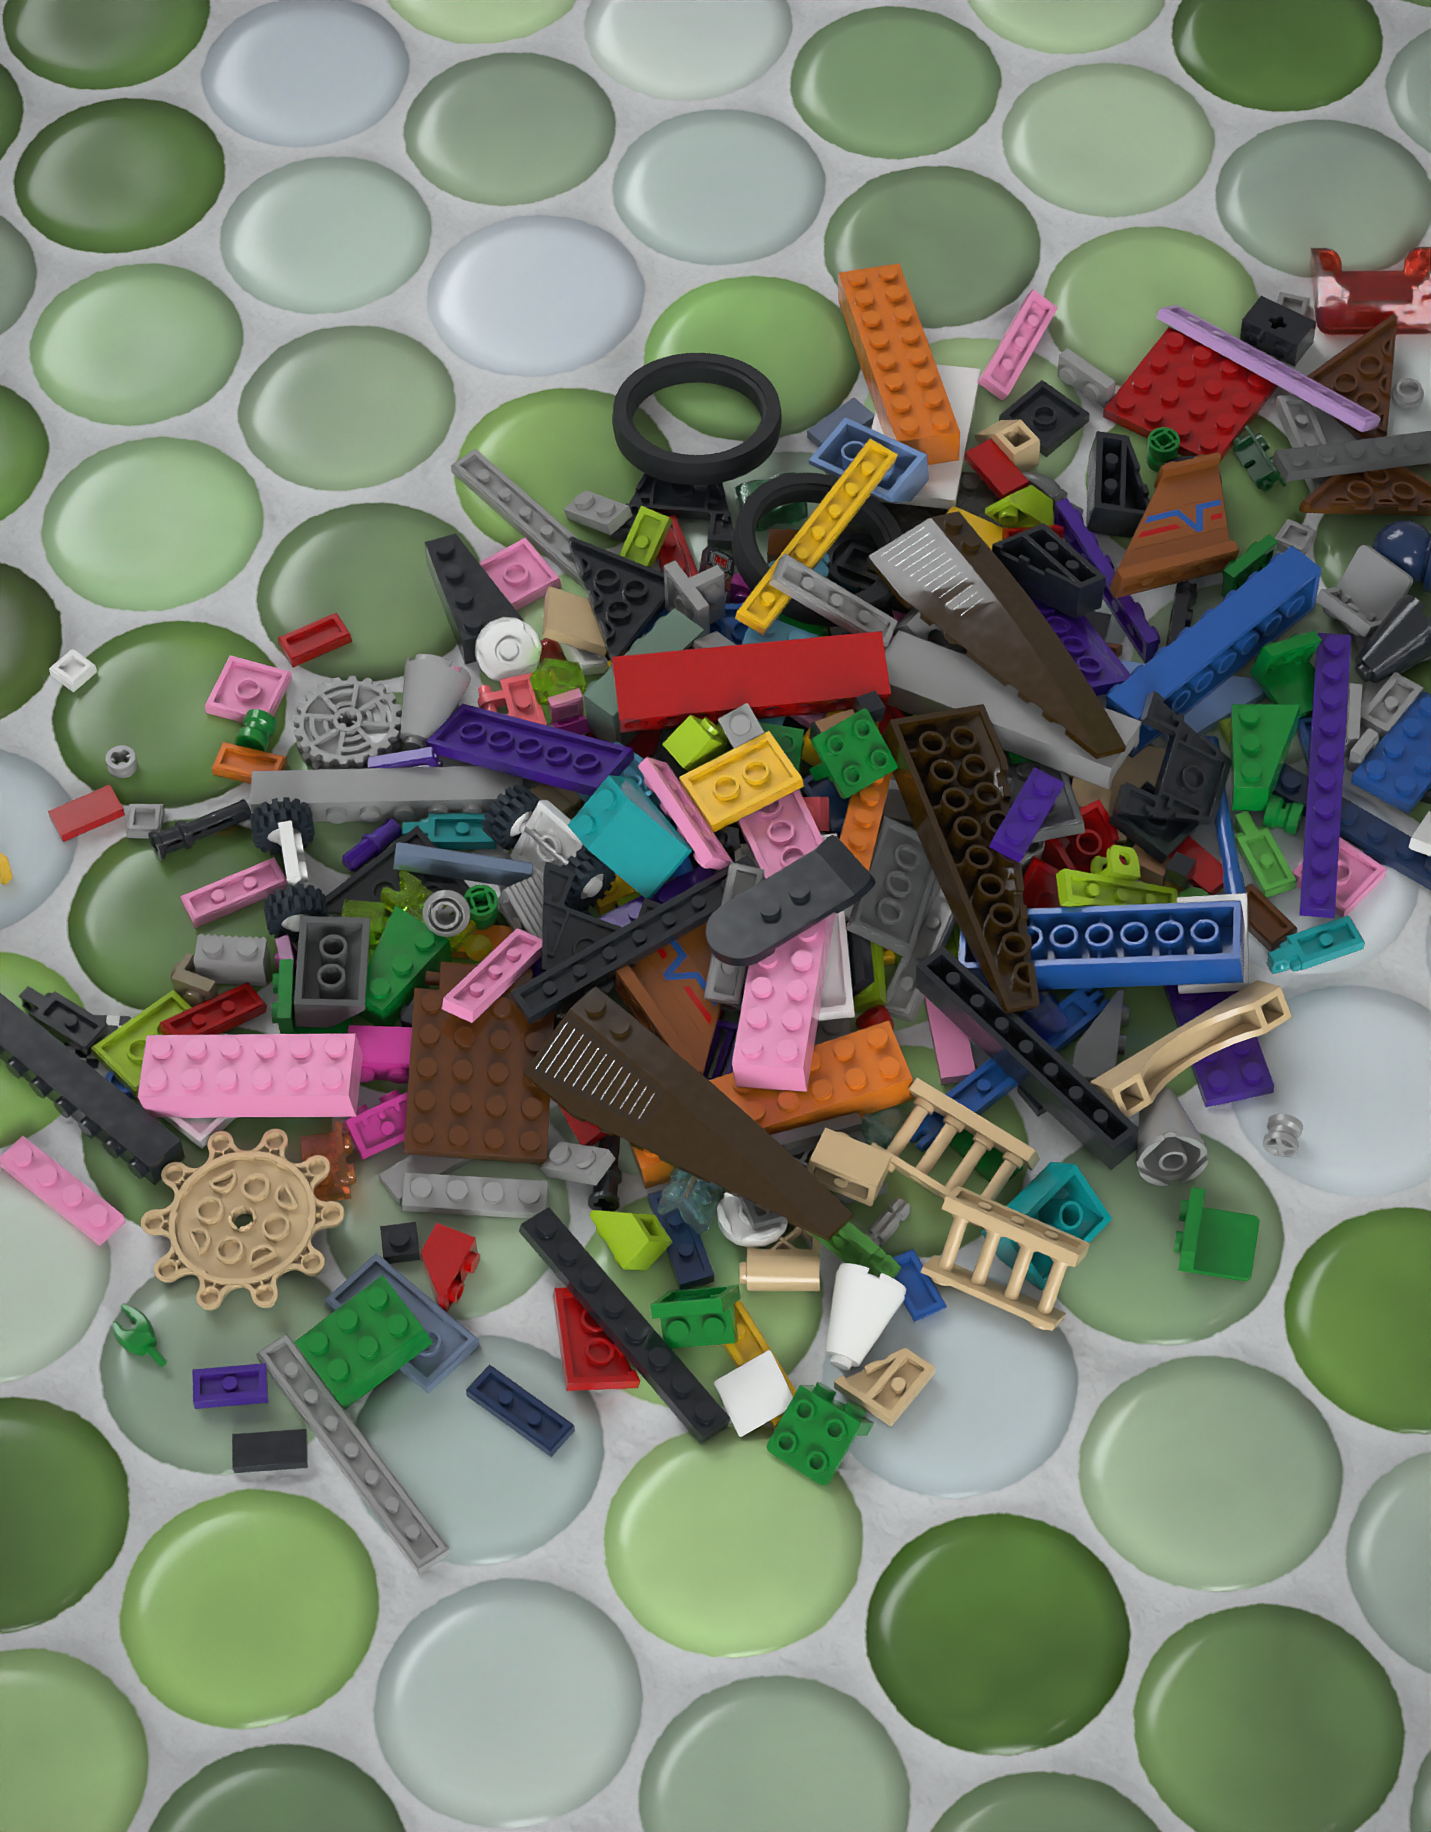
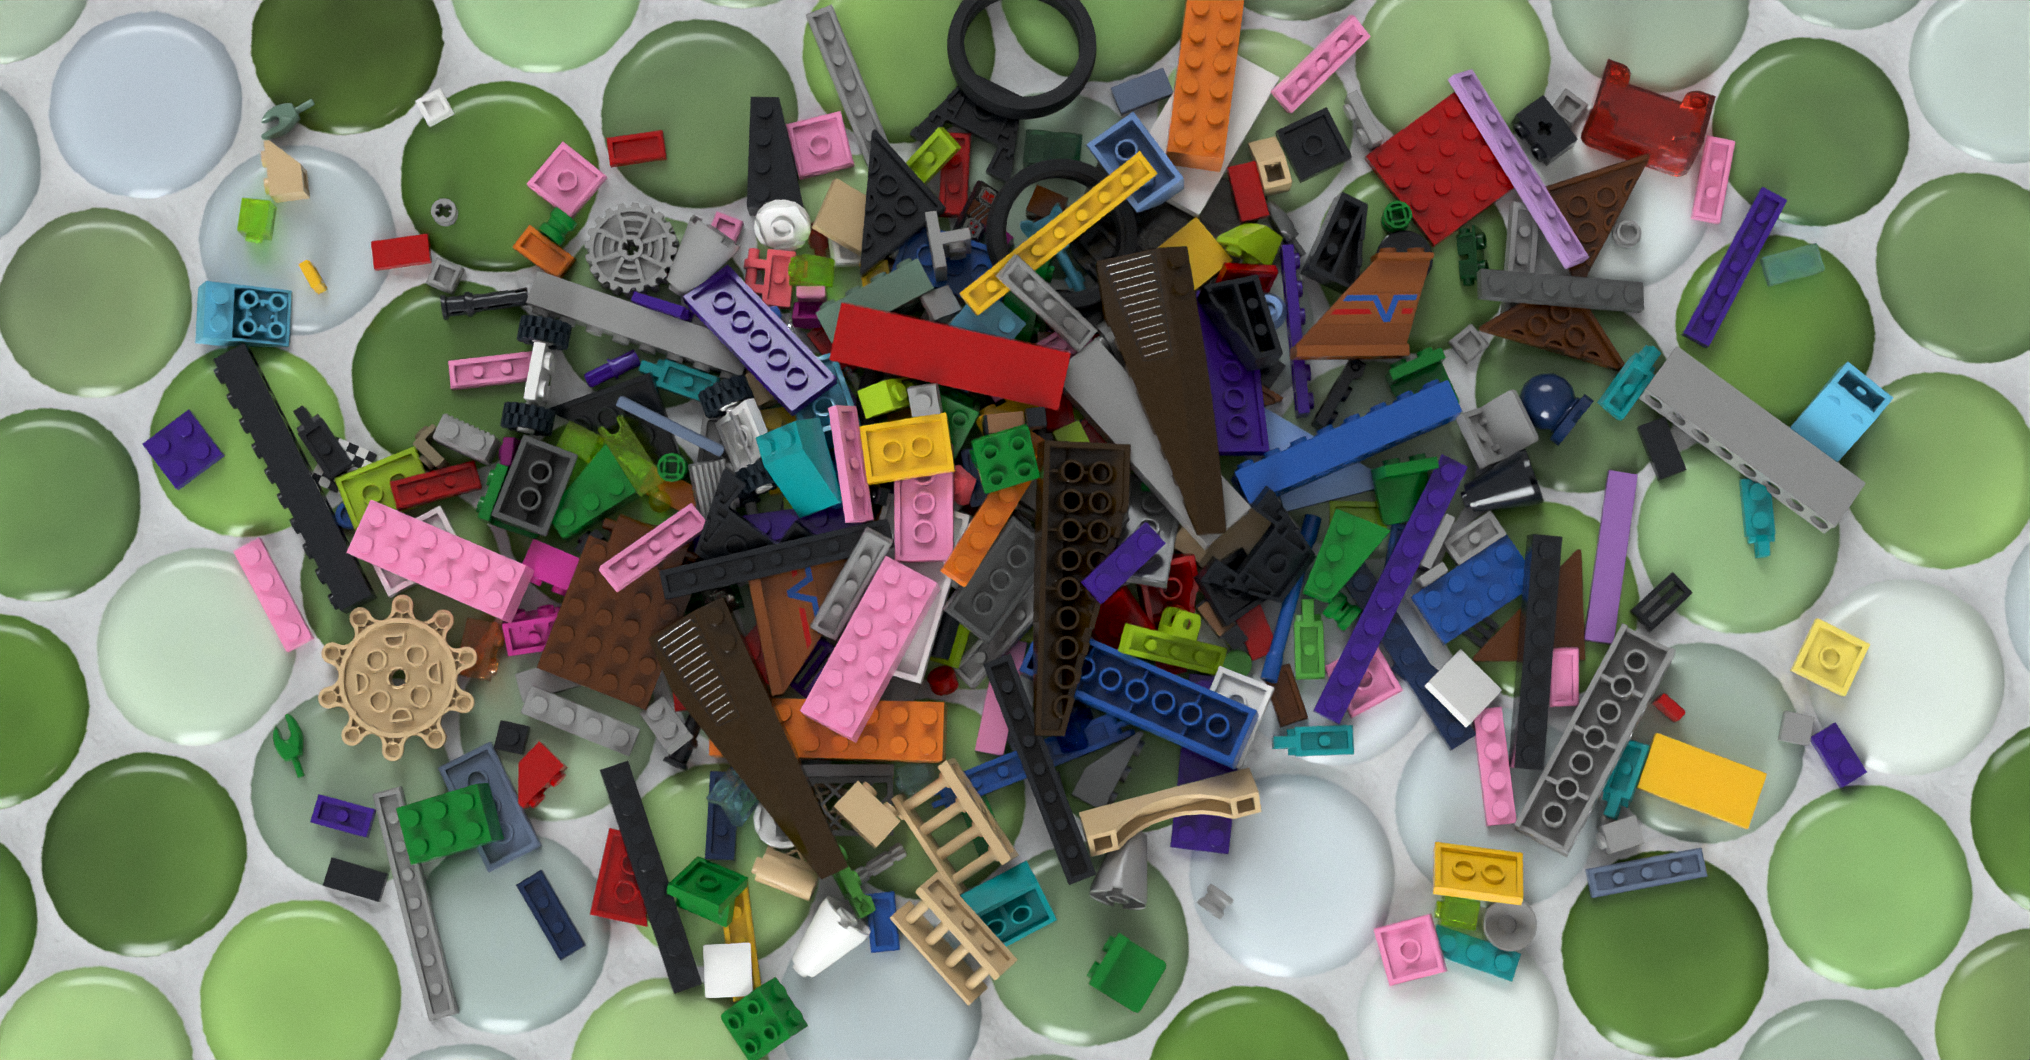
camera: 20 degrees right, 25 degrees up
(438, 918) = (638, 472): light grey cone -> none
(598, 512) = (907, 110): light grey plate -> none
(632, 1237) = (683, 801): lime slope -> none
(787, 904) = (895, 586): black piece -> none
(887, 1384) = (829, 1000): tan wing -> none

